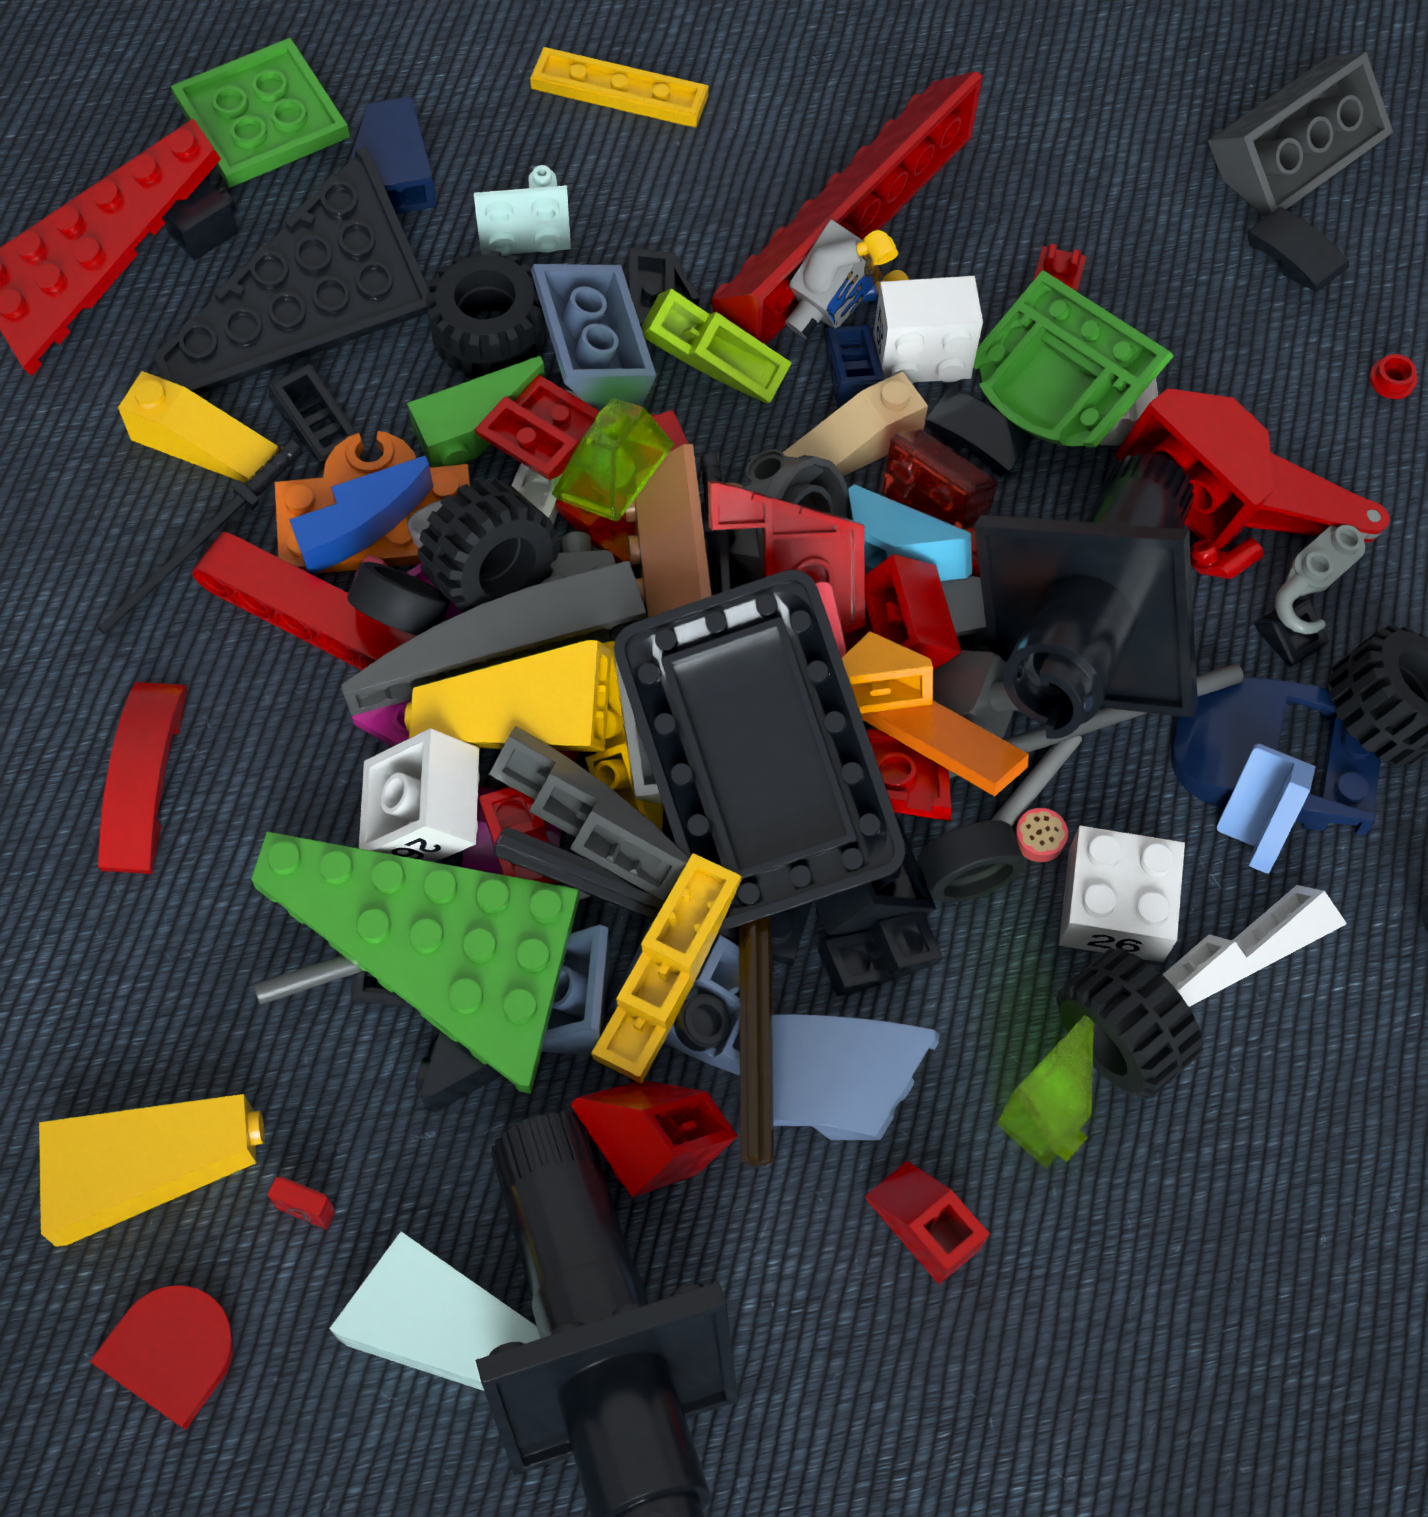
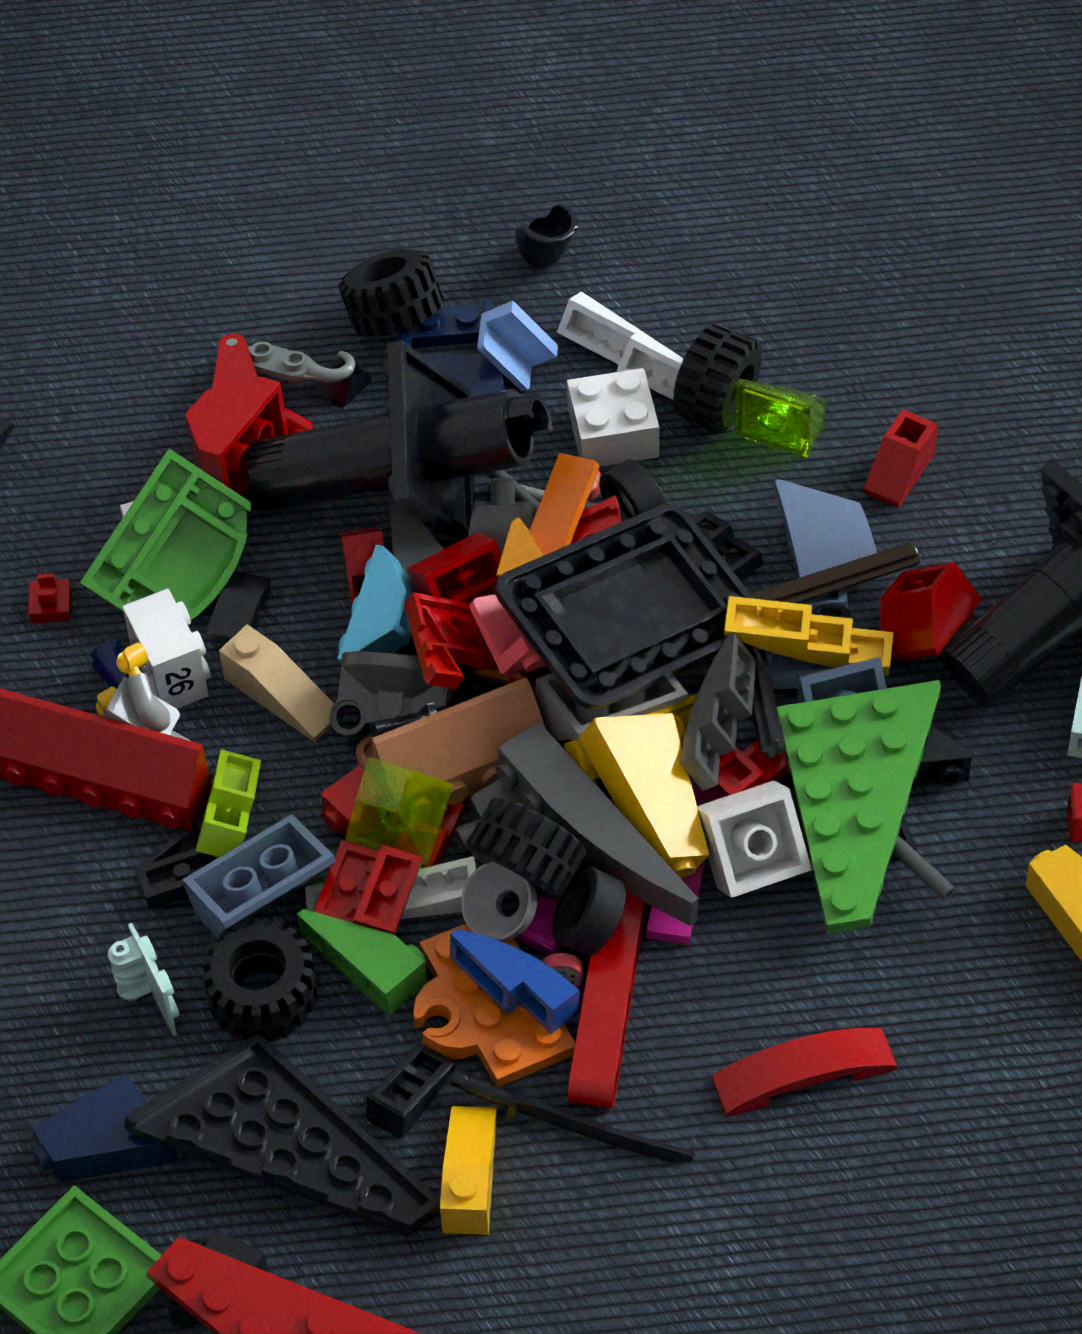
camera: 105 degrees left, 10 degrees down
(853, 367) = (221, 713): dark blue slope -> none
(936, 480) = (311, 609): clear red slope -> none
(1393, 376) = (81, 365): red plate -> none

